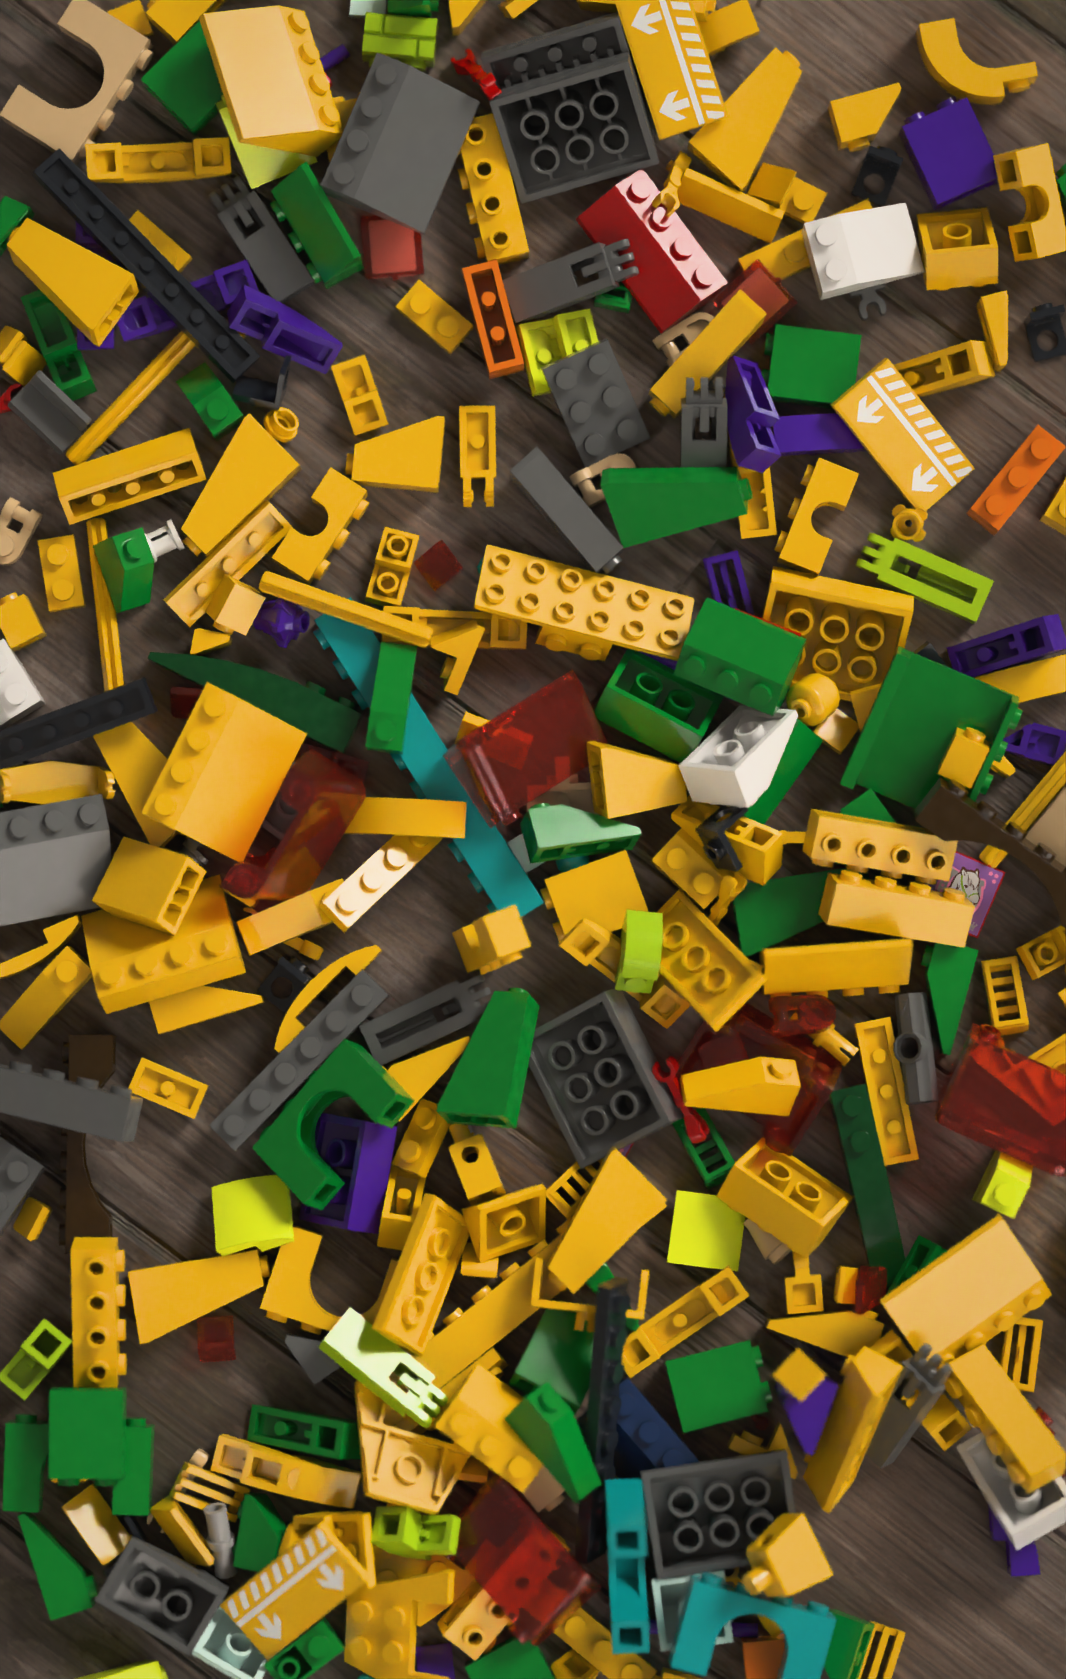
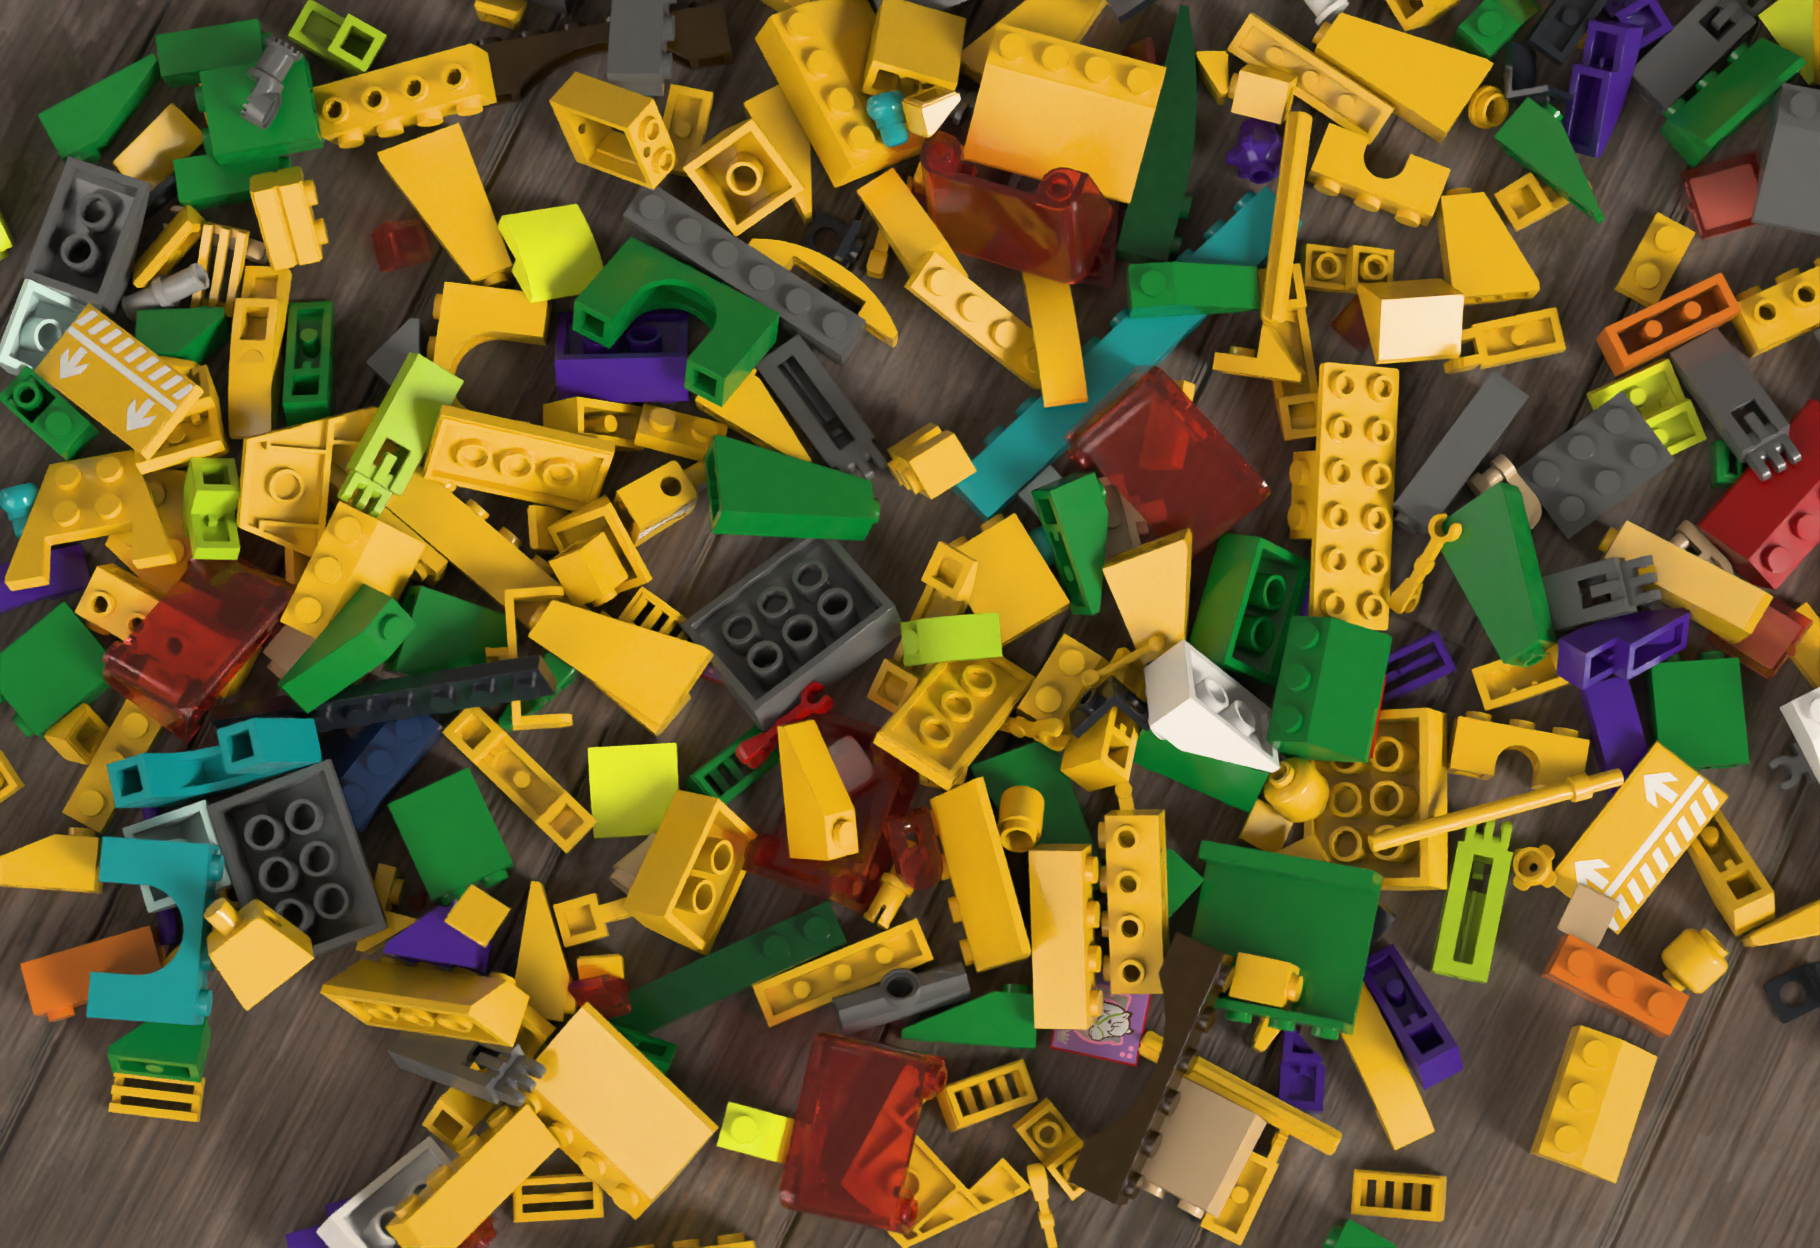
camera: 80 degrees right, 5 degrees down
(64, 1419) = (269, 75): none -> dark grey connector
(164, 1144) = (639, 155): none -> yellow window
(180, 1428) = (287, 219): none -> yellow brick
(202, 916) = (889, 117): none -> teal piece
(206, 882) = (929, 109): none -> yellow slope
(222, 1047) = (742, 175): none -> yellow slope
(331, 383) = (1542, 146): none -> green slope
(448, 525) = (1412, 319): none -> slope
(526, 1233) = (589, 570): none -> yellow brick
(669, 575) = (1408, 593): none -> yellow piece
(693, 845) = (1091, 677): none -> yellow hinge
(797, 925) = (1020, 818): none -> yellow brick
(857, 477) = (1575, 788): none -> yellow bar
(956, 489) = (1588, 915): none -> tan slope
(1008, 412) = (1694, 960): none -> yellow head

